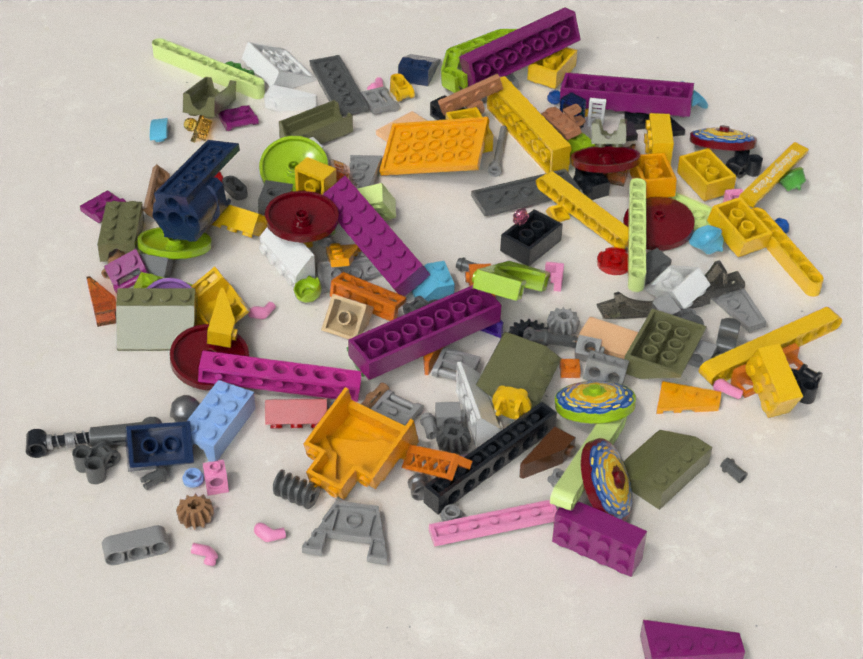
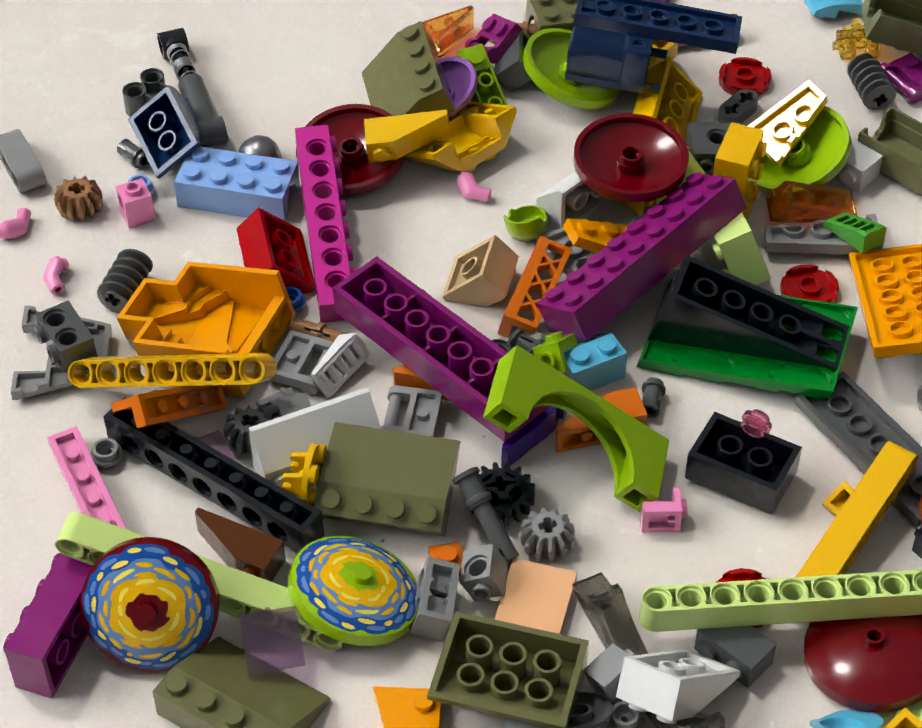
camera: 80 degrees right, 5 degrees up
(241, 130) = (871, 81): none -> dark grey piece
(277, 160) = (789, 120): none -> wing
(351, 517) = (64, 335): none -> dark grey brick
(370, 159) = (857, 231): none -> bright green slope
(401, 191) = (810, 284): none -> red tile
(401, 386) = (353, 352): none -> white slope
(413, 455) = (184, 366): none -> yellow beam
(434, 288) = (553, 349): none -> lime bracket
(439, 216) = (746, 335): none -> black piece
(631, 437) = (272, 640): none -> piece

